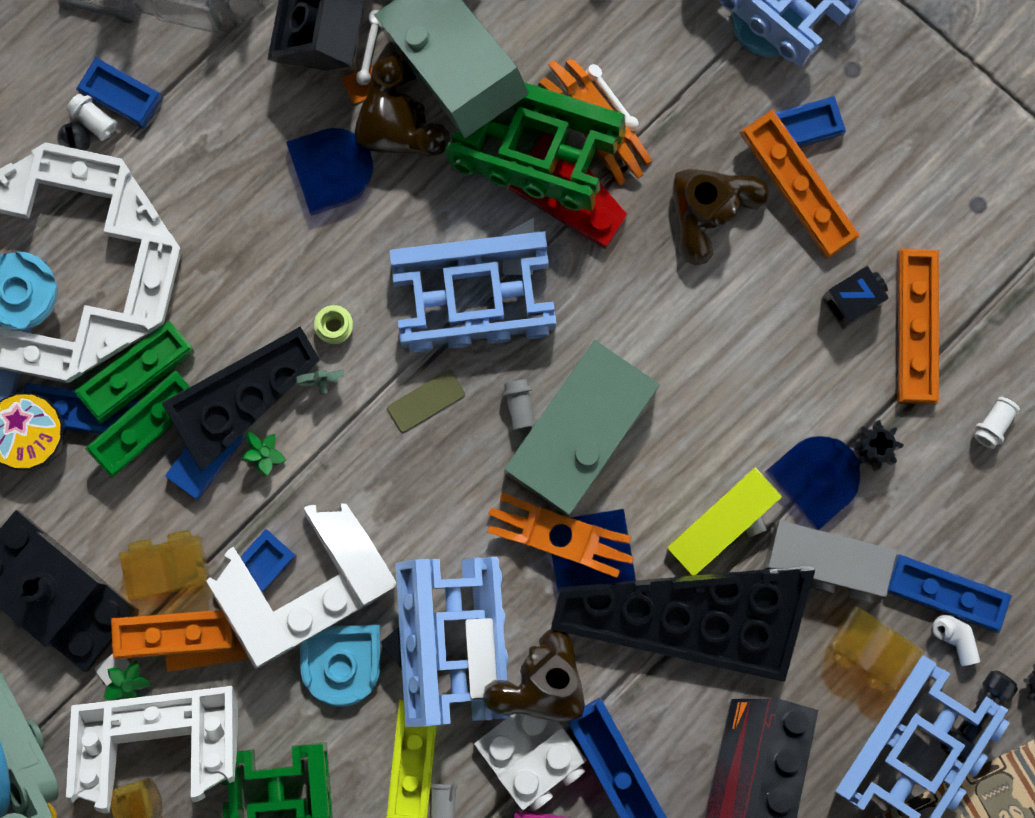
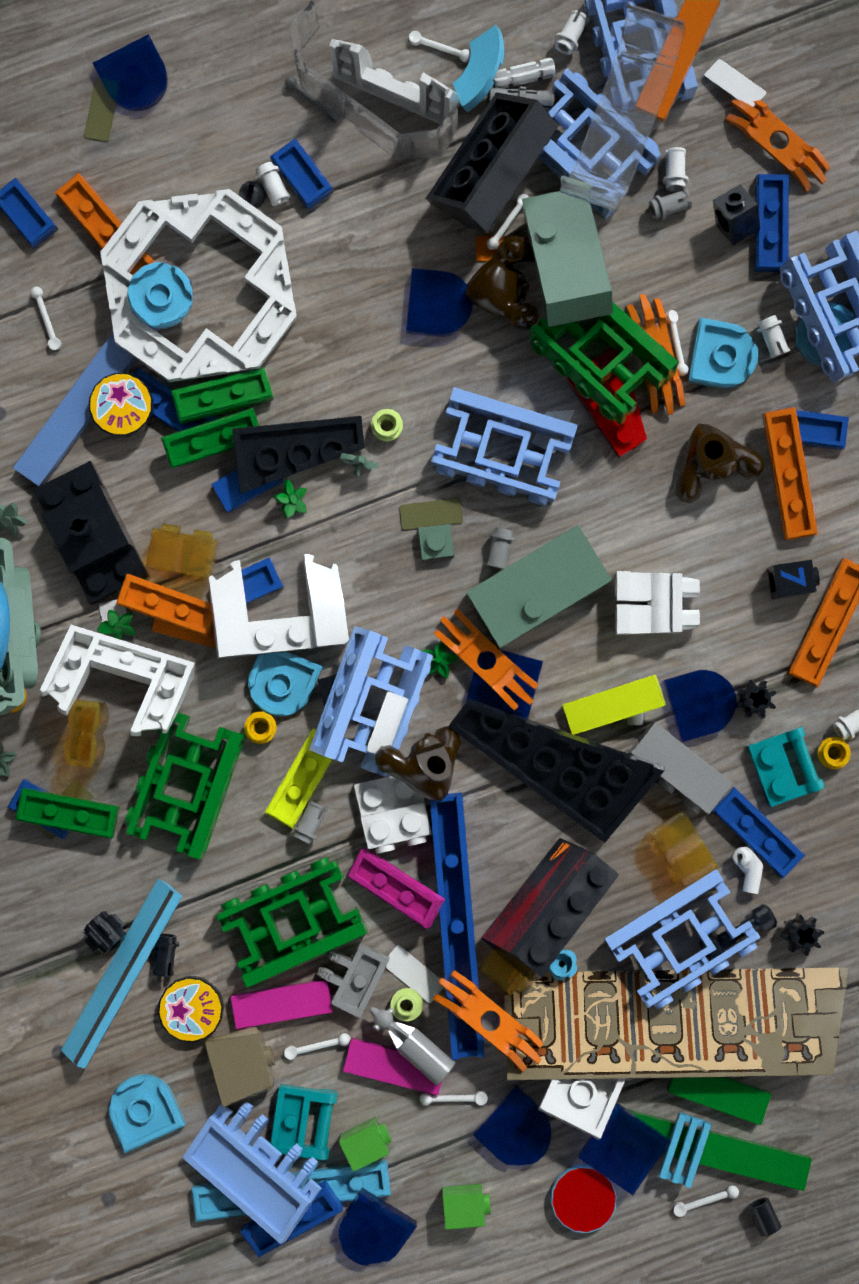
camera: 30 degrees right, 5 degrees up
(326, 729) = (251, 733): none -> yellow plate
(445, 429) = (436, 542): none -> sand green plate
(509, 558) = (440, 660): none -> green plant
(666, 89) = (722, 355): none -> medium azure tile
(713, 45) = (773, 336): none -> white pin
(729, 386) = (664, 603): none -> white hips
(935, 515) = (775, 771): none -> teal plate
(1000, 462) = (843, 753): none -> yellow plate

